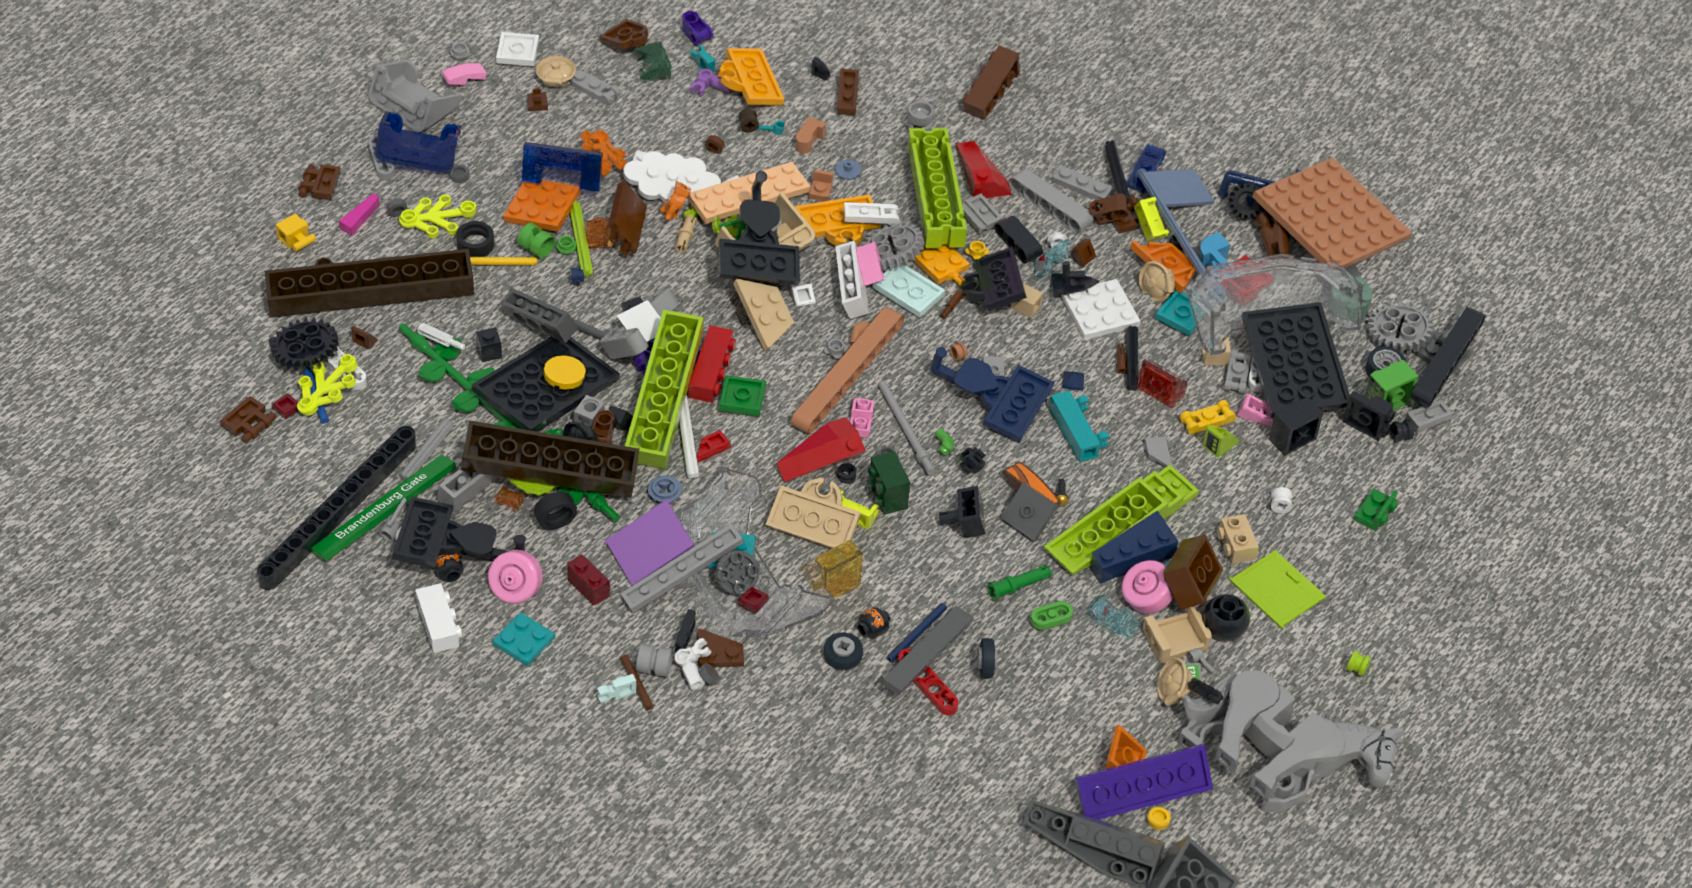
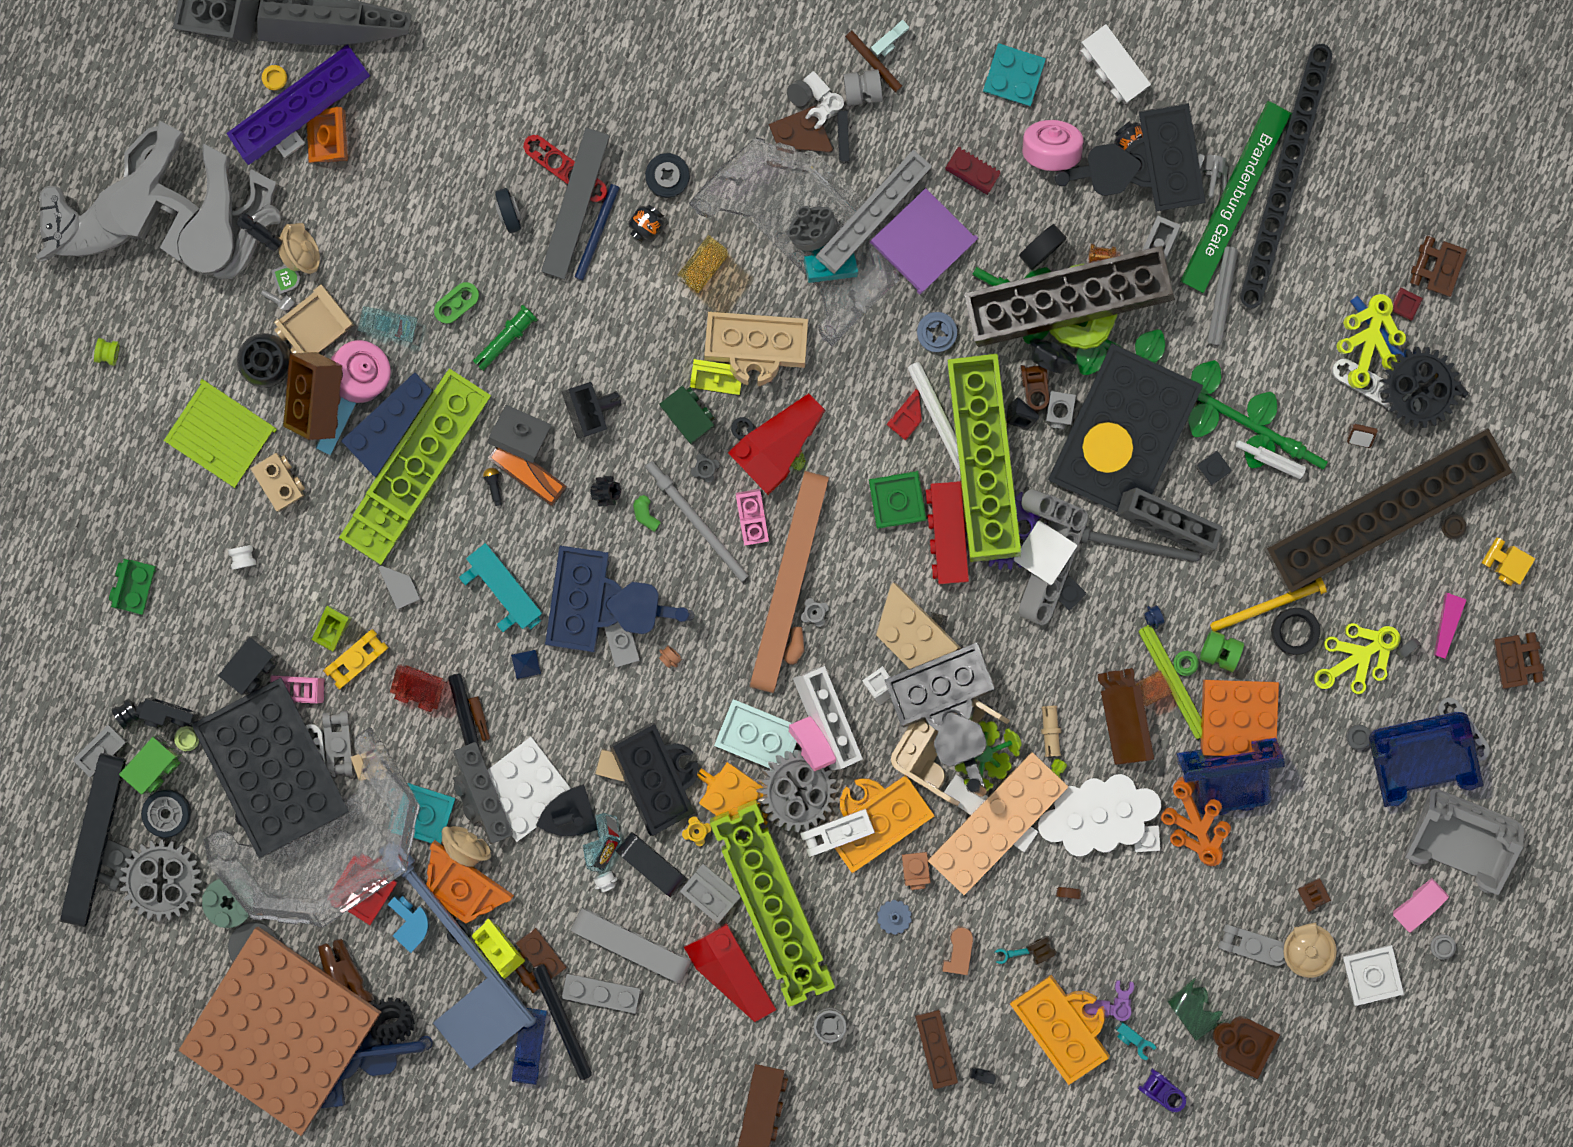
camera: 165 degrees right, 40 degrees up
(676, 200) = (1078, 769): orange animal -> none
(753, 599) = (785, 206): dark red tile -> none
(952, 303) = (701, 734): reddish brown piece -> none
(1083, 252) = (567, 869): reddish brown tile -> none
(1110, 209) = (550, 946): reddish brown piece -> none
(1136, 306) = (479, 794): none -> dark grey bracket

